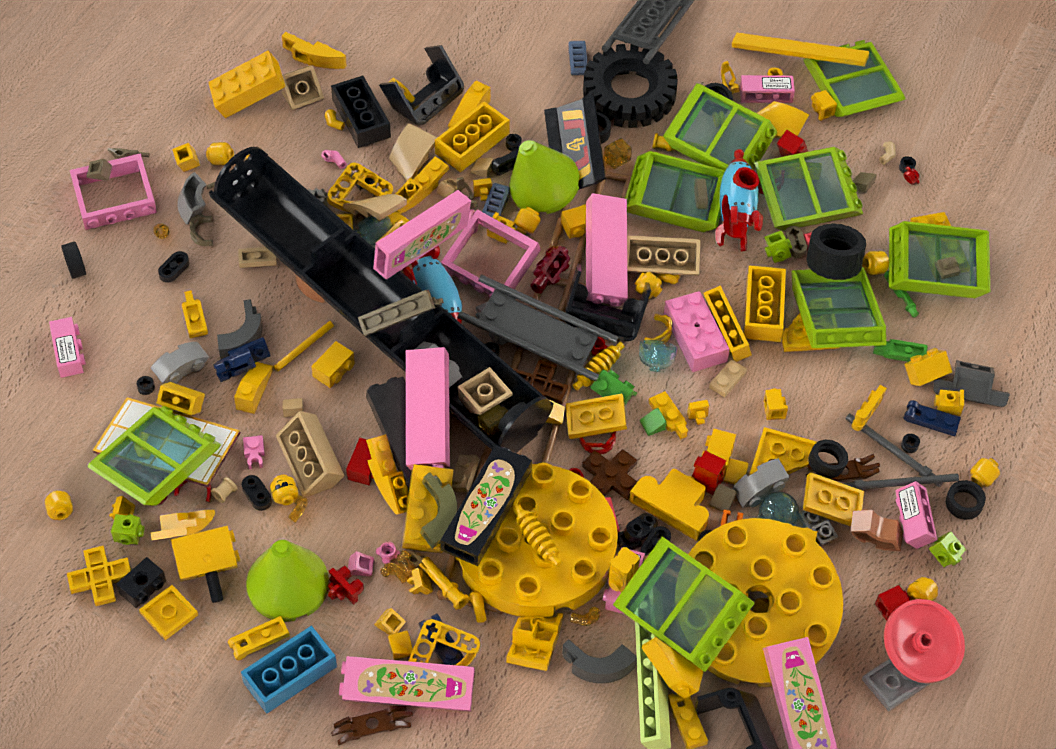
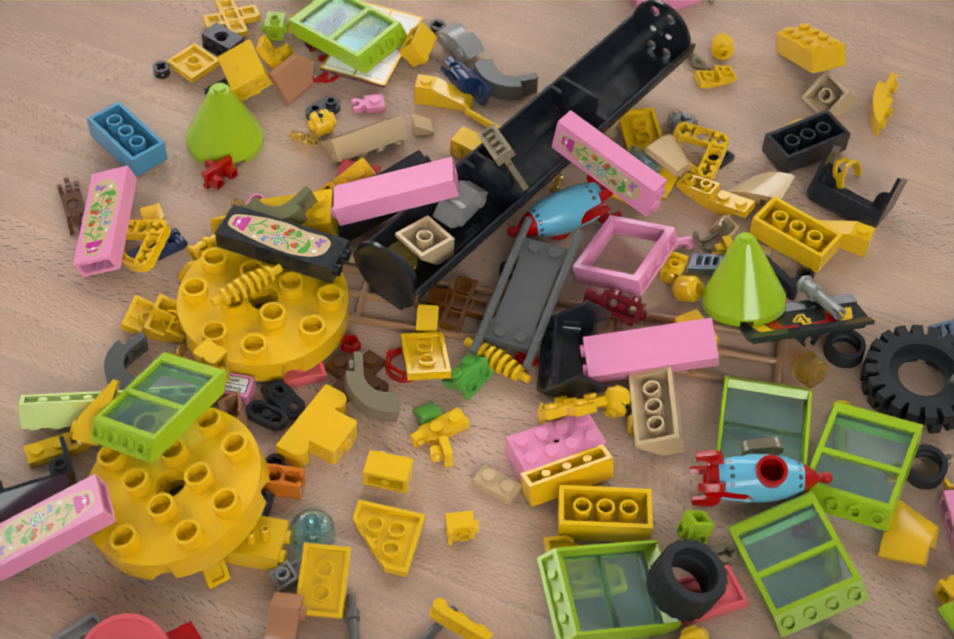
camera: 85 degrees right, 5 degrees down
(163, 228) = (617, 17): clear yellow hinge -> none
(171, 640) = (161, 69): none -> black bush
(172, 267) = (575, 30): black plate -> none
(186, 157) = (708, 21): yellow brick -> none
(194, 316) = (520, 48): yellow hinge -> none
(216, 511) = (293, 77): none -> nougat tile
(224, 490) = (322, 85): tan bush -> none
(258, 638) = (166, 122): yellow plate -> none
(335, 157) = (743, 132): bright pink arm -> none
(361, 564) = (244, 186): bright pink slope -> none
(390, 622) = (180, 211): yellow slope -> none
(547, 130) = (816, 293): none -> light grey pin
(639, 465) = (369, 401): none -> dark tan arch
(657, 354) = (515, 406): clear light blue cylinder -> none
(664, 310) = (571, 406): none -> yellow plate
(709, 471) = (352, 454): red brick -> none
(723, 498) = (329, 478): dark tan slope -> none
(735, 471) = (364, 490): yellow slope -> none
(768, 479) = (342, 507): light grey brick -> none
(791, 144) = (859, 541): red brick -> none
(822, 468) = (378, 555): black tyre -> none
(856, 469) = (371, 585): reddish brown piece -> none

